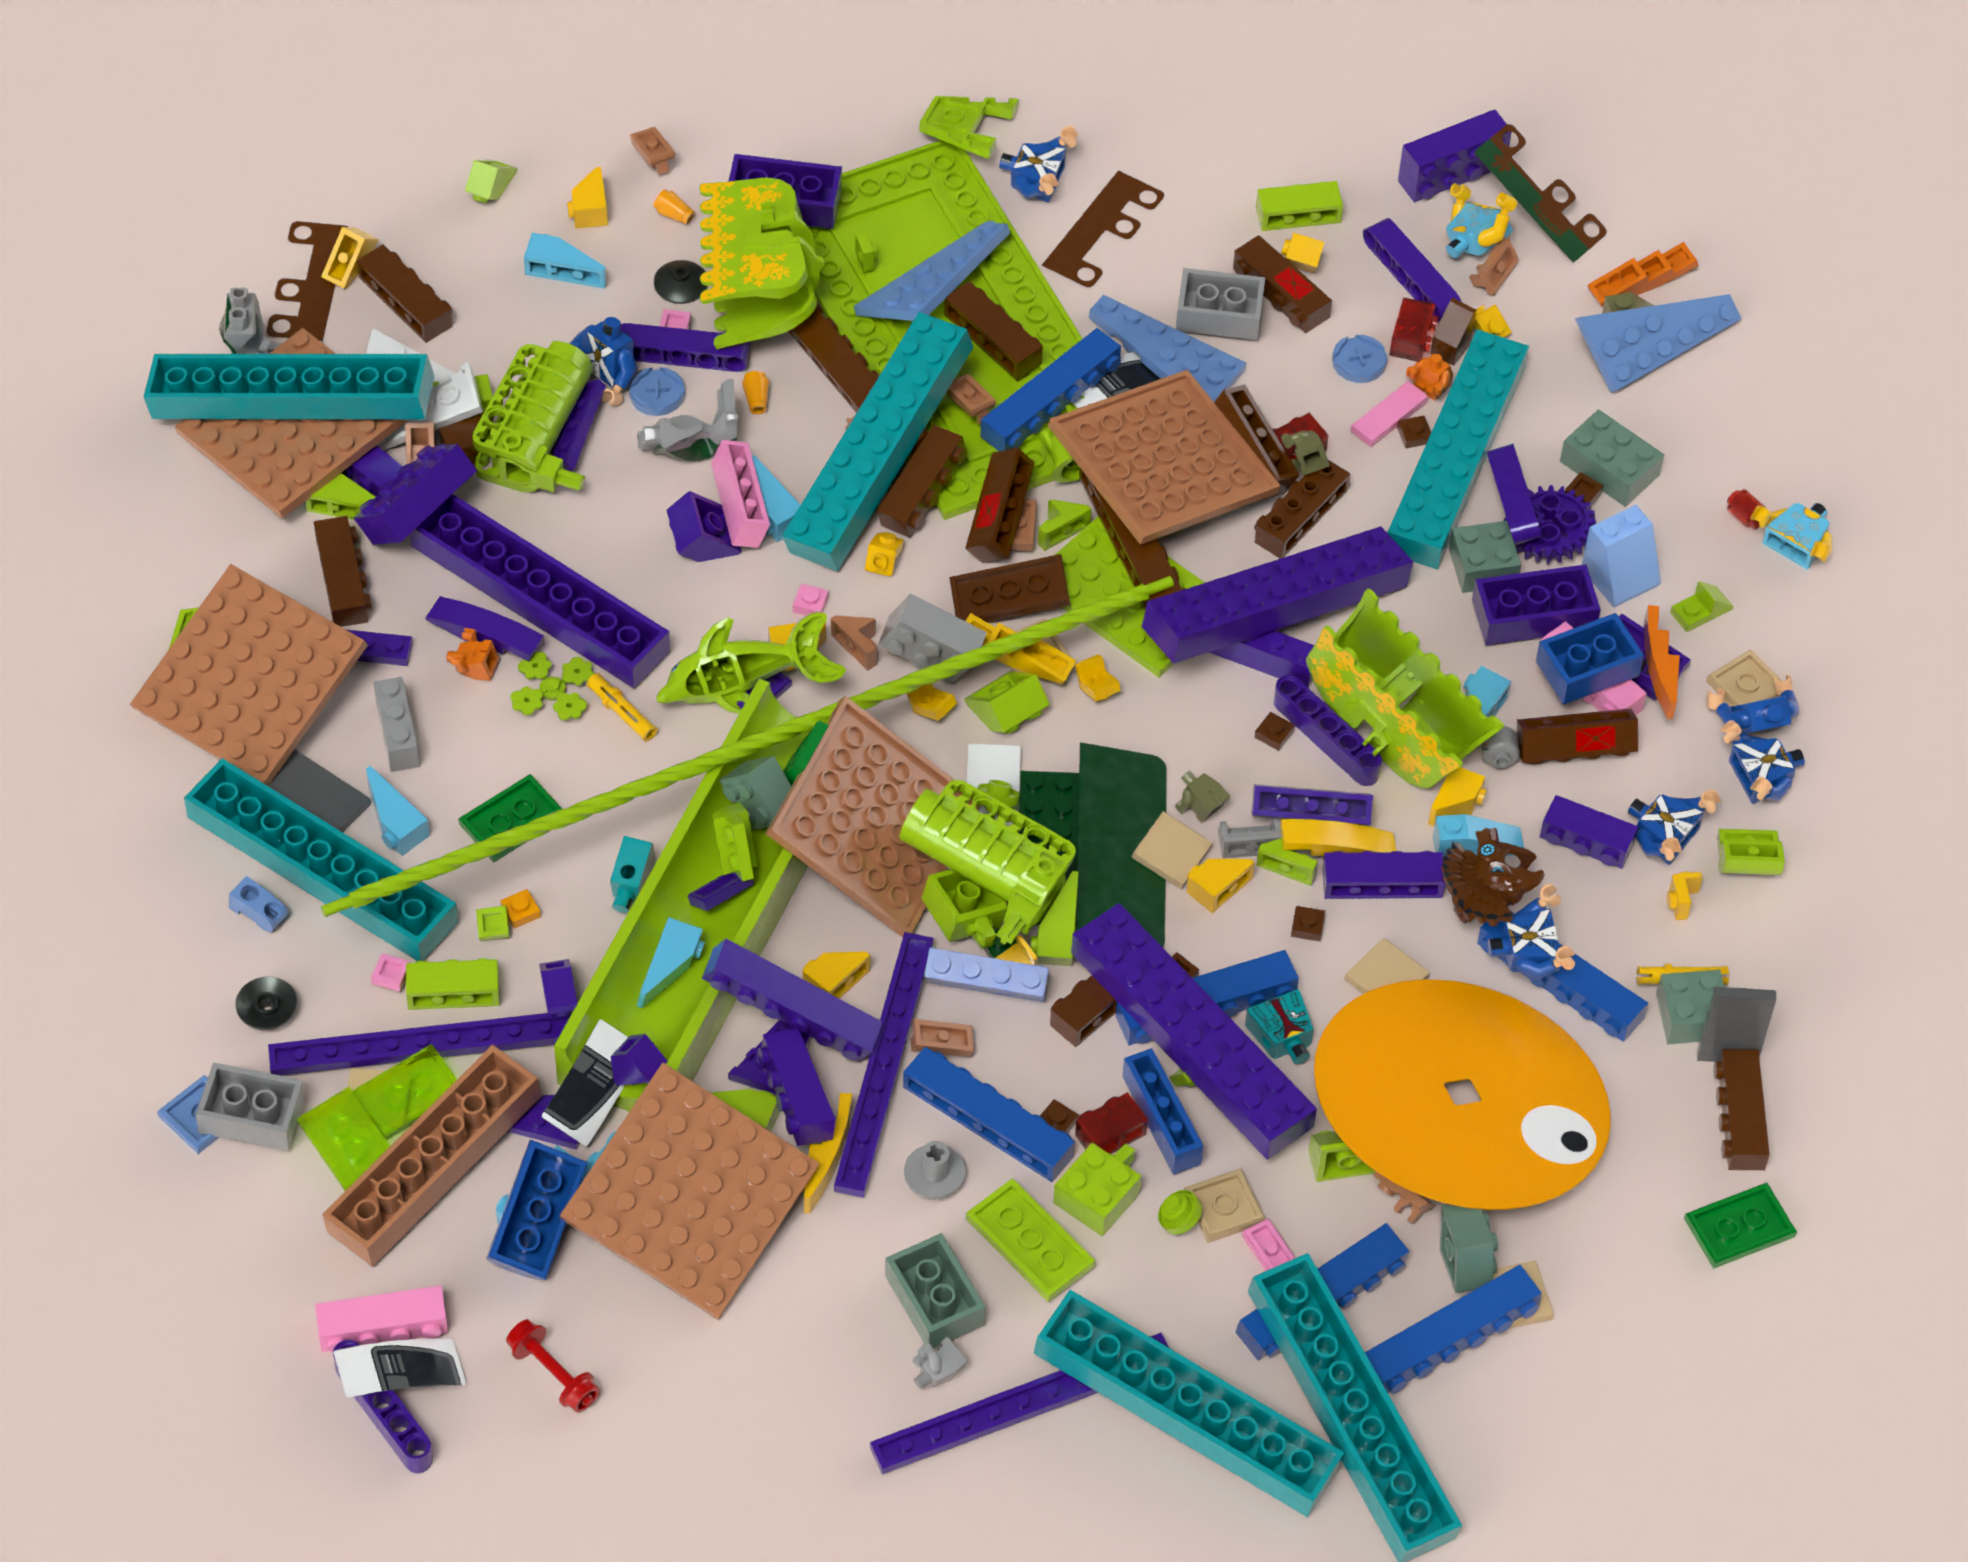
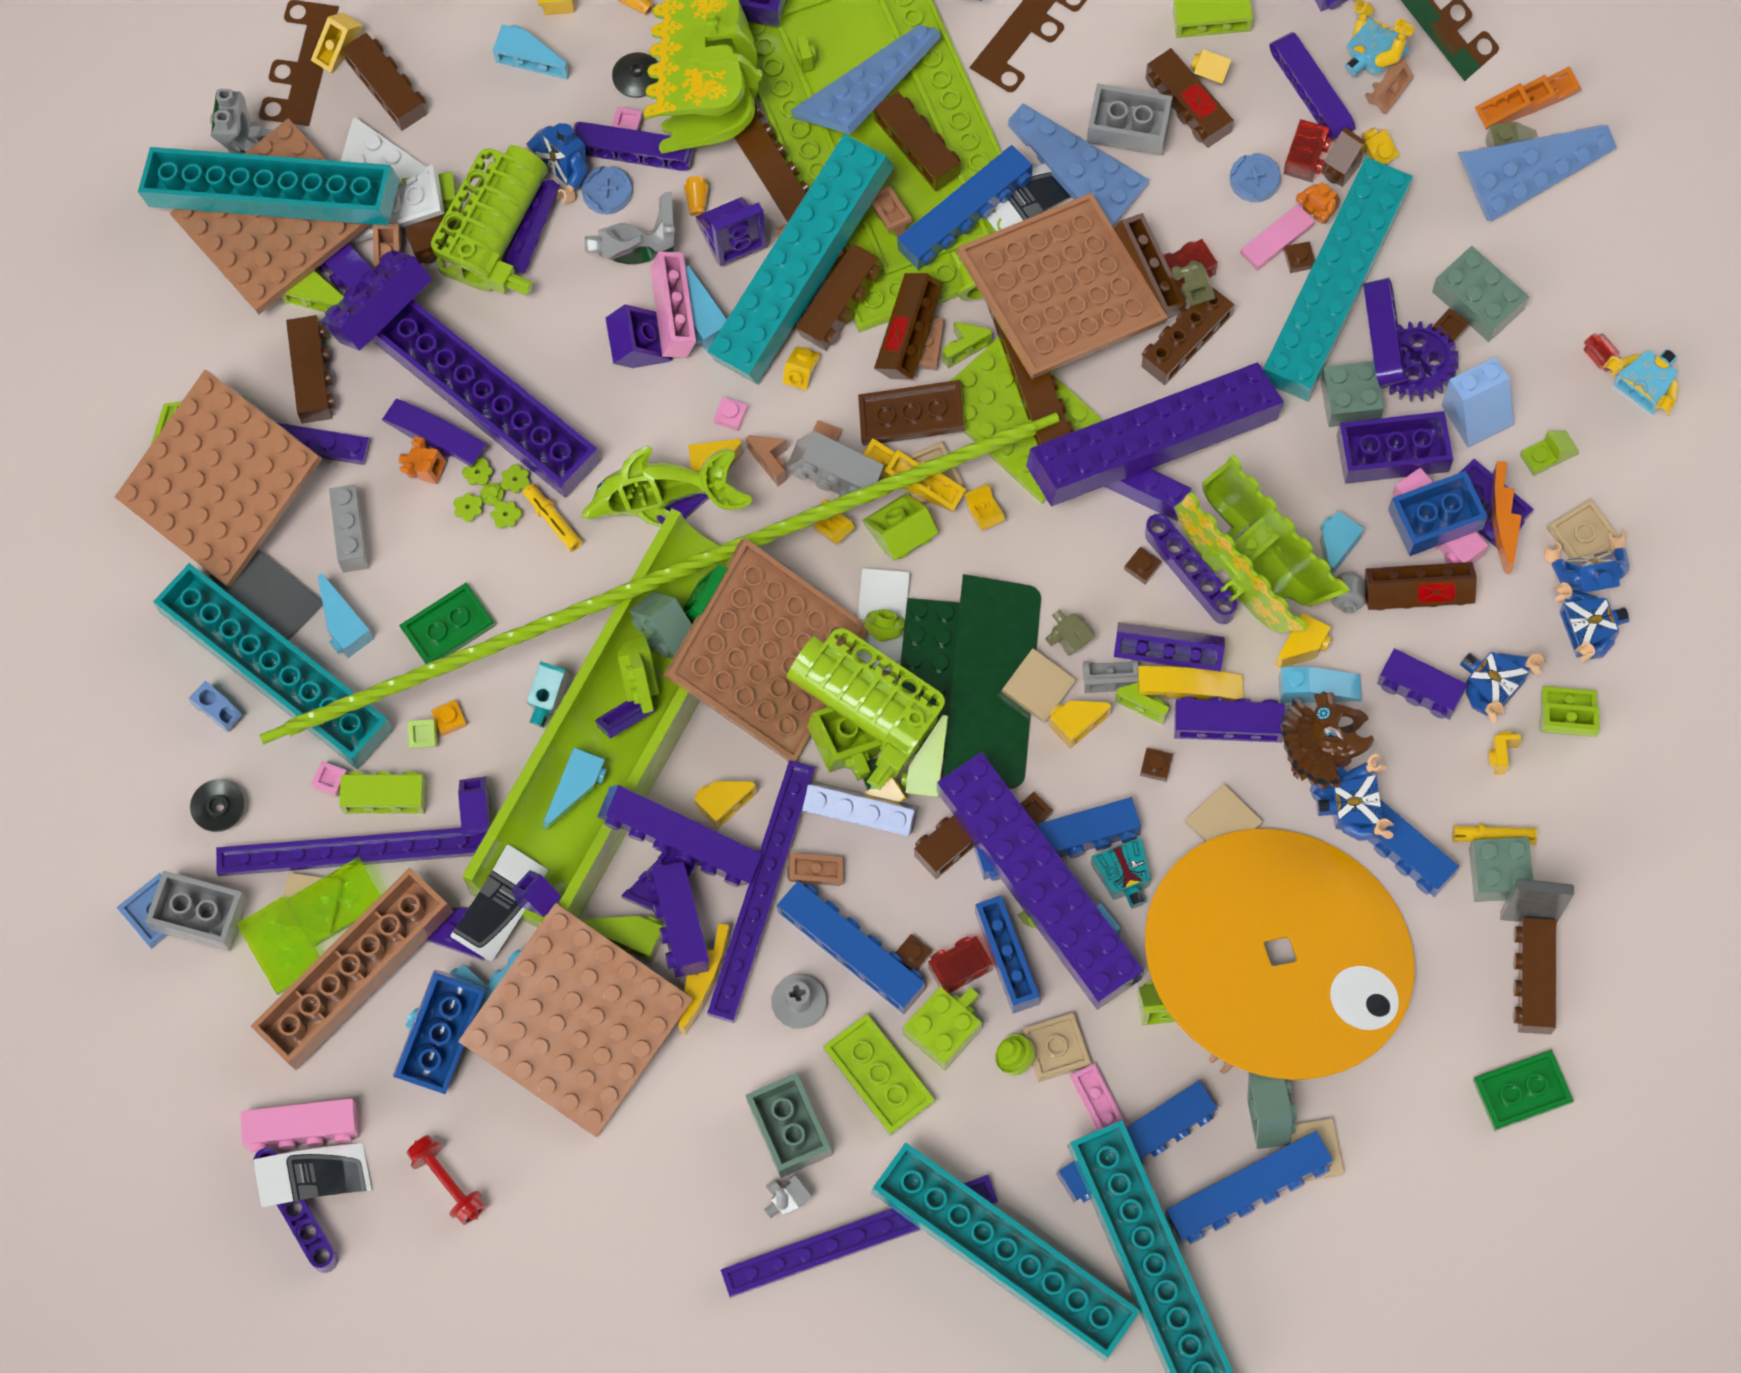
camera: 10 degrees right, 15 degrees up
(803, 419) = (733, 230): none -> dark purple bracket

